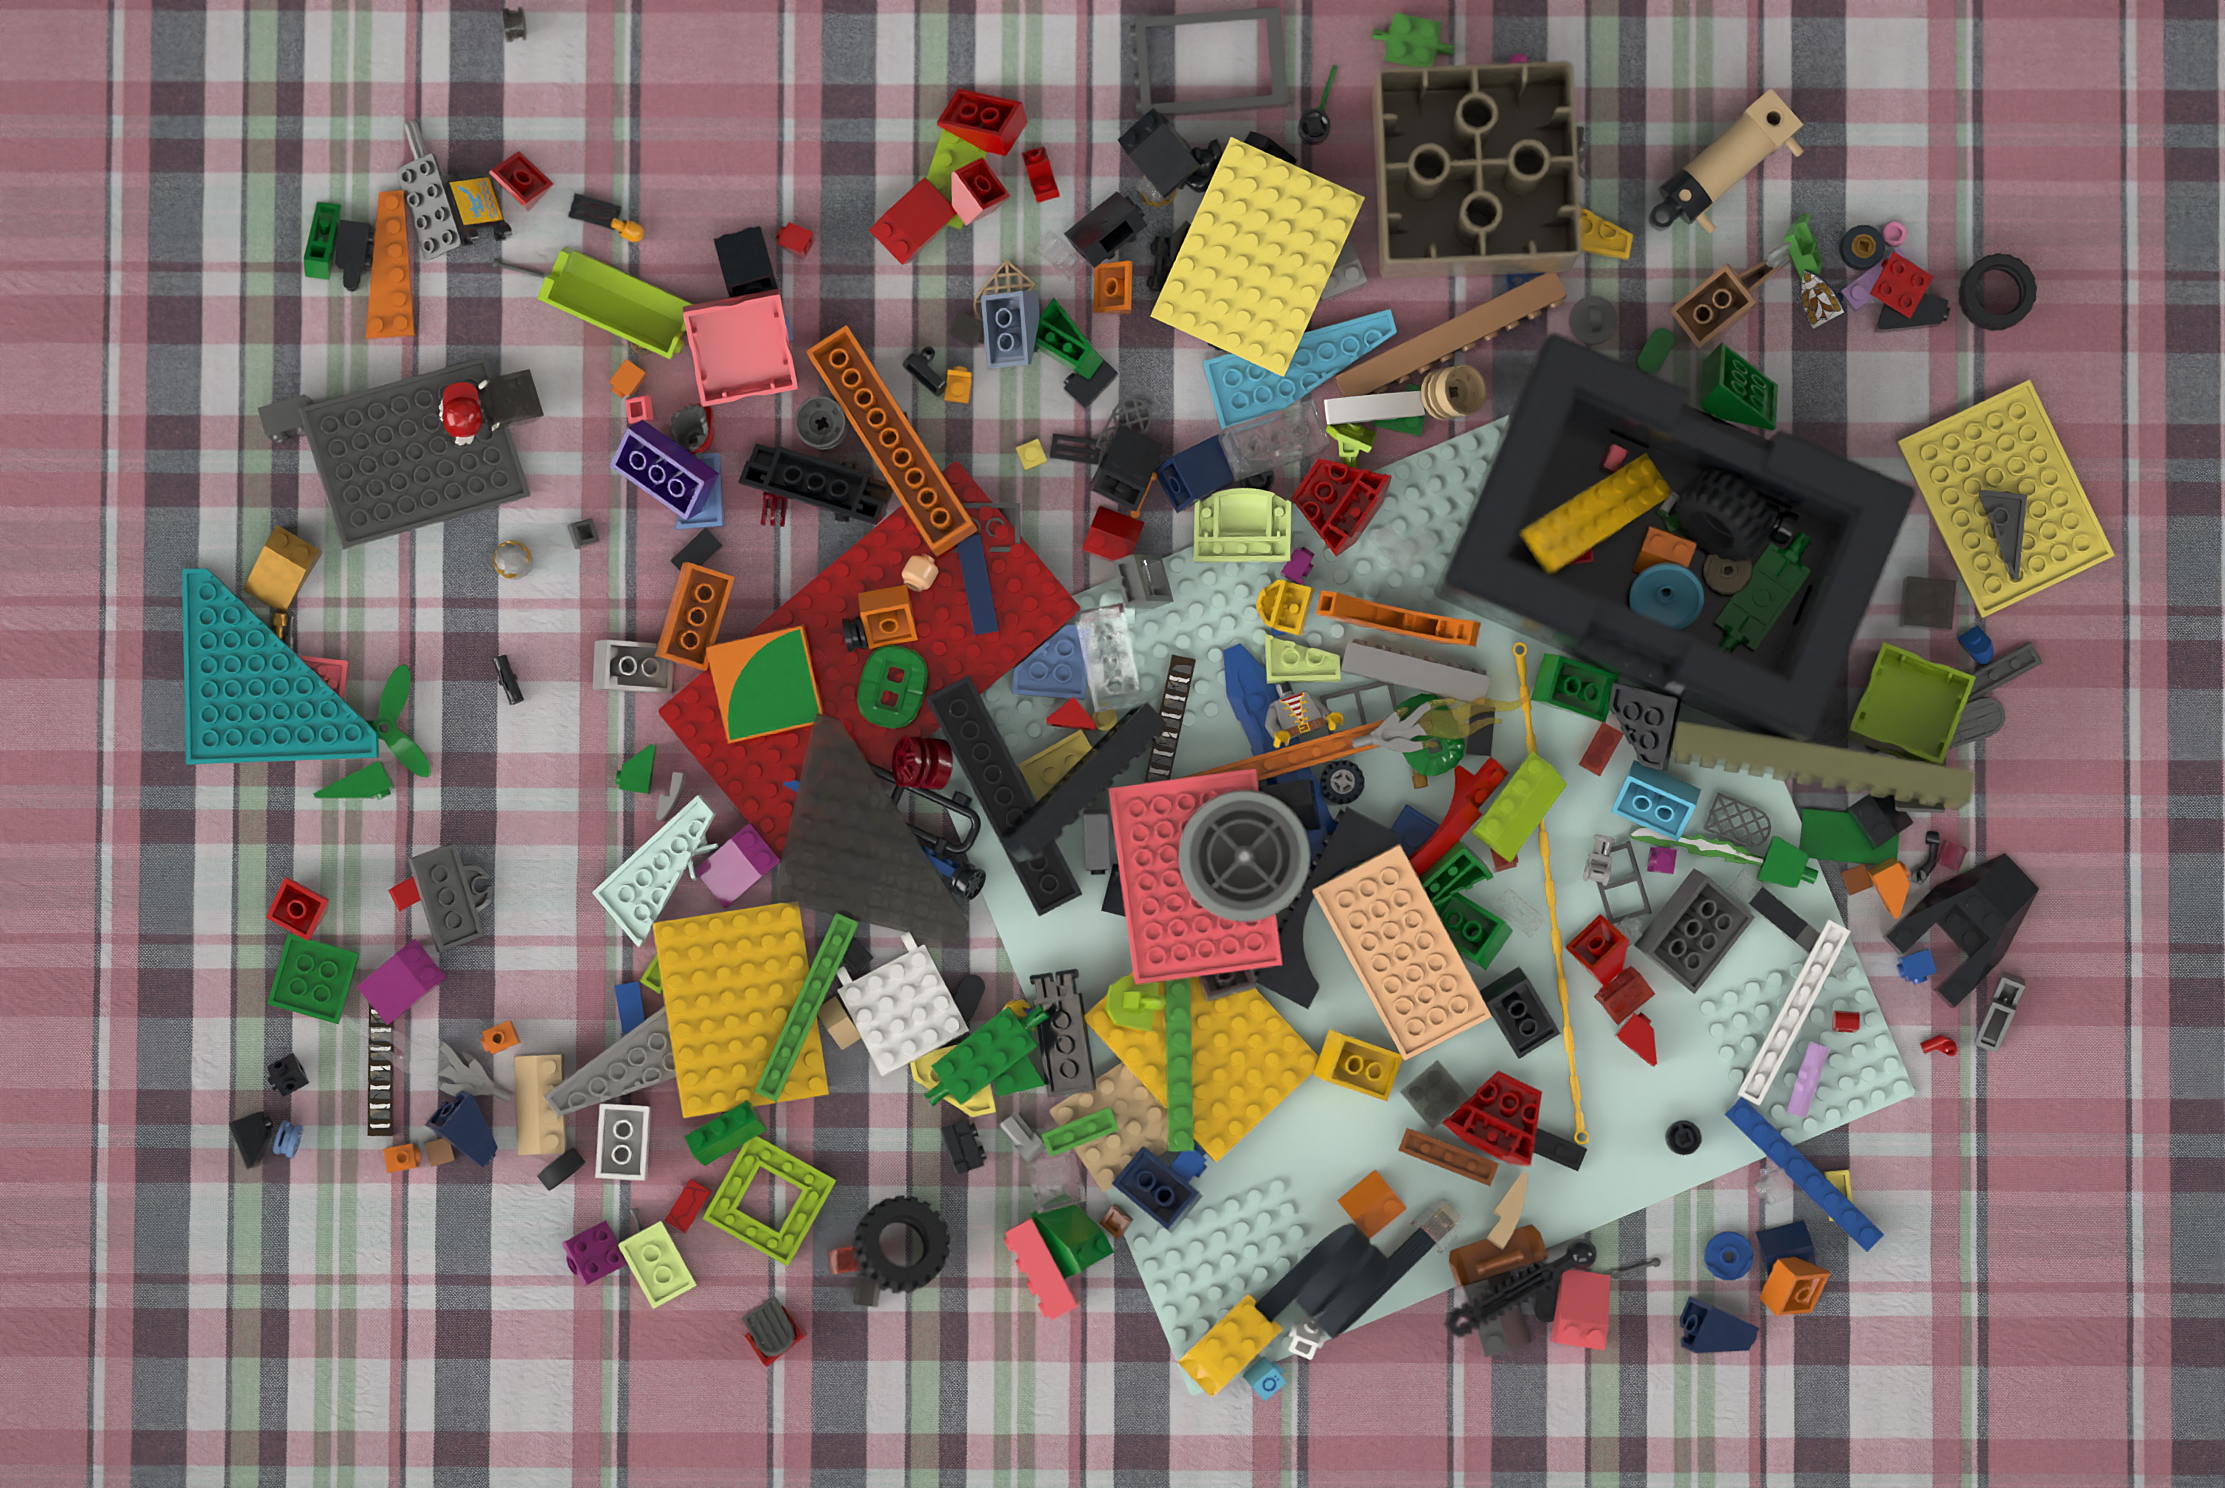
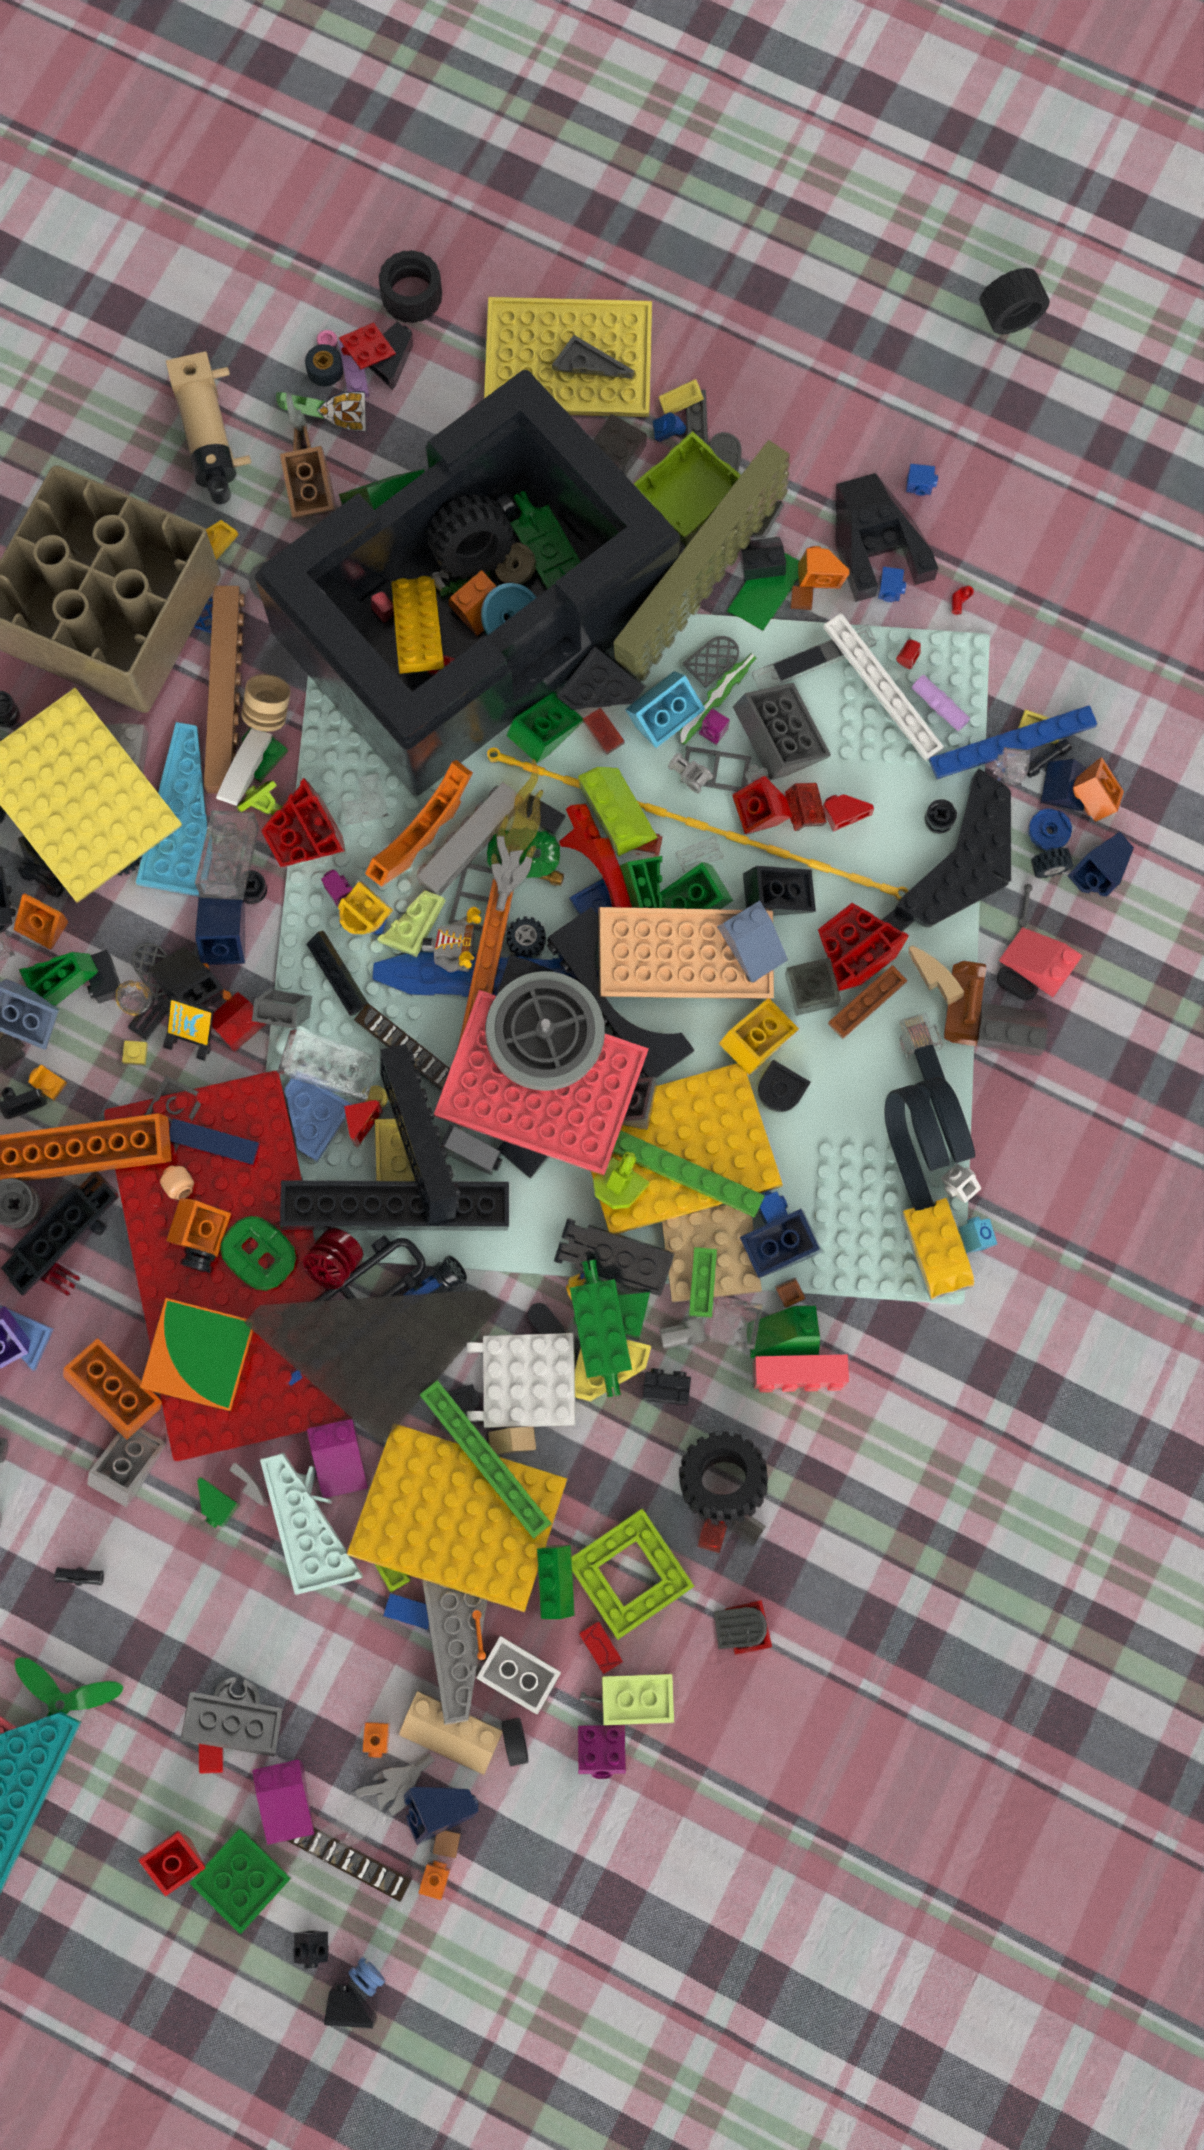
camera: 65 degrees left, 10 degrees down
(364, 784) = (98, 1747): green slope -> none
(657, 1074) = (481, 1655): none -> orange hinge
(698, 550) = (60, 1355): black tile -> none
(1083, 426) = (133, 997): none -> clear hair
(1083, 498) = (191, 1024): none -> flag
(1209, 613) = (337, 973): none -> black plate
(1242, 527) = (283, 913): yellowish green slope -> none
(1317, 1113) = (781, 1088): none -> black tile
(1372, 1204) = (875, 1078): orange slope -> none
(1448, 1013) = (754, 941): none -> sand blue slope
(1538, 1278) = (1002, 997): black gear -> none
(1667, 1194) = (979, 854): none -> black wing
(1690, 1274) = (1052, 862): none -> black wheel
(1785, 865) = (764, 639): green torso -> none
(1824, 1227) = (1061, 748): none -> black bar
(1921, 874) = (801, 527): black piece -> none
(1951, 855) = (819, 520): clear pink brick -> none
(2000, 1011) = (956, 542): dark grey slope -> none
(2017, 642) = (681, 397): none -> light yellow tile
(2052, 941) = (921, 479): none -> blue brick

